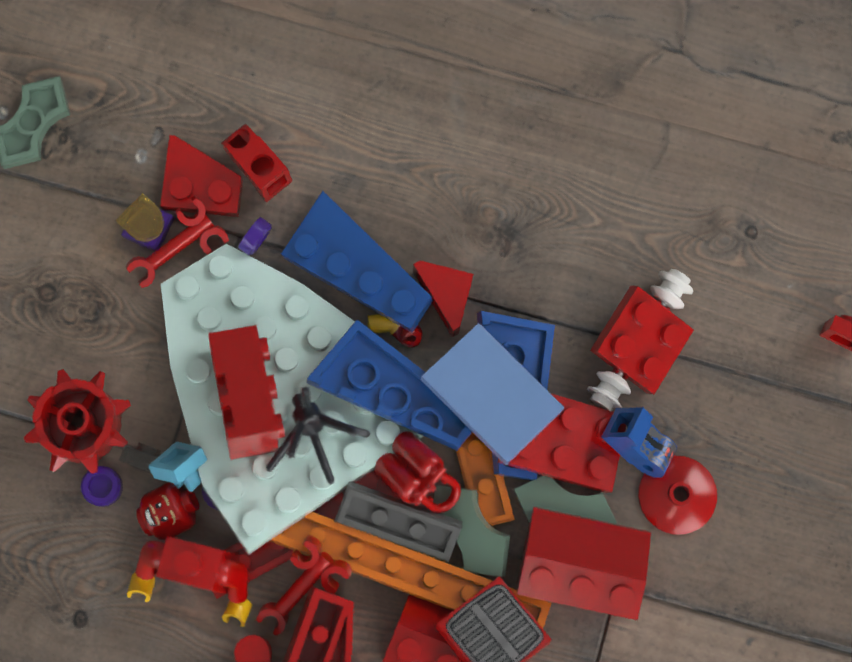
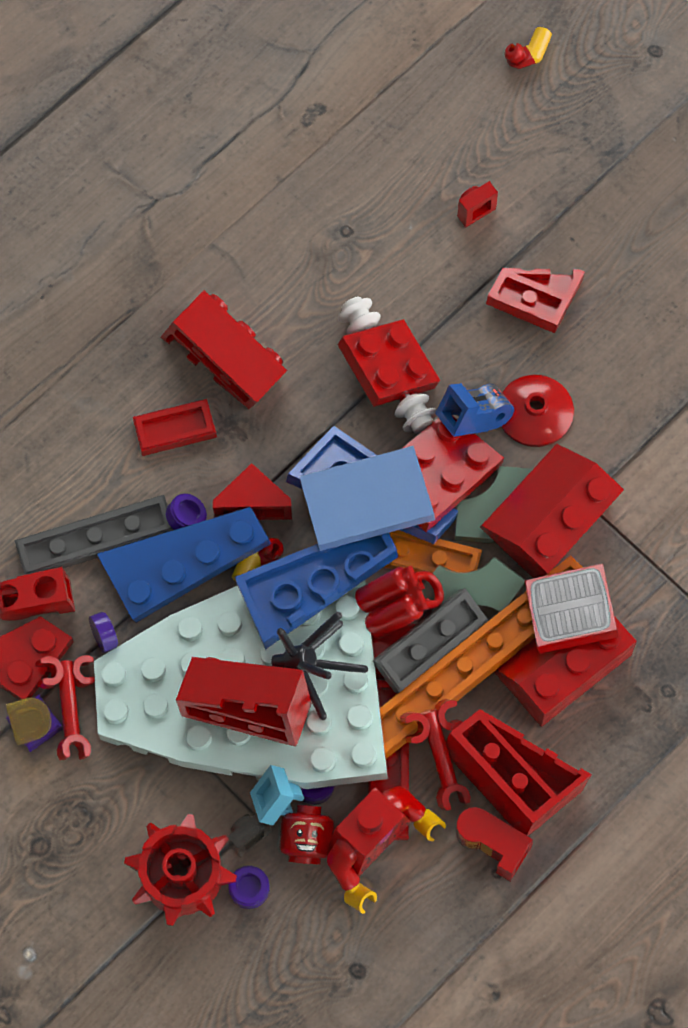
camera: 55 degrees left, 10 degrees down
(339, 180) = (88, 537): none -> dark grey tile
(401, 244) = (185, 511): none -> dark purple tile
(477, 189) = (174, 427): none -> red tile
(569, 193) = (226, 349): none -> red wedge
(787, 435) = (535, 295): none -> wing

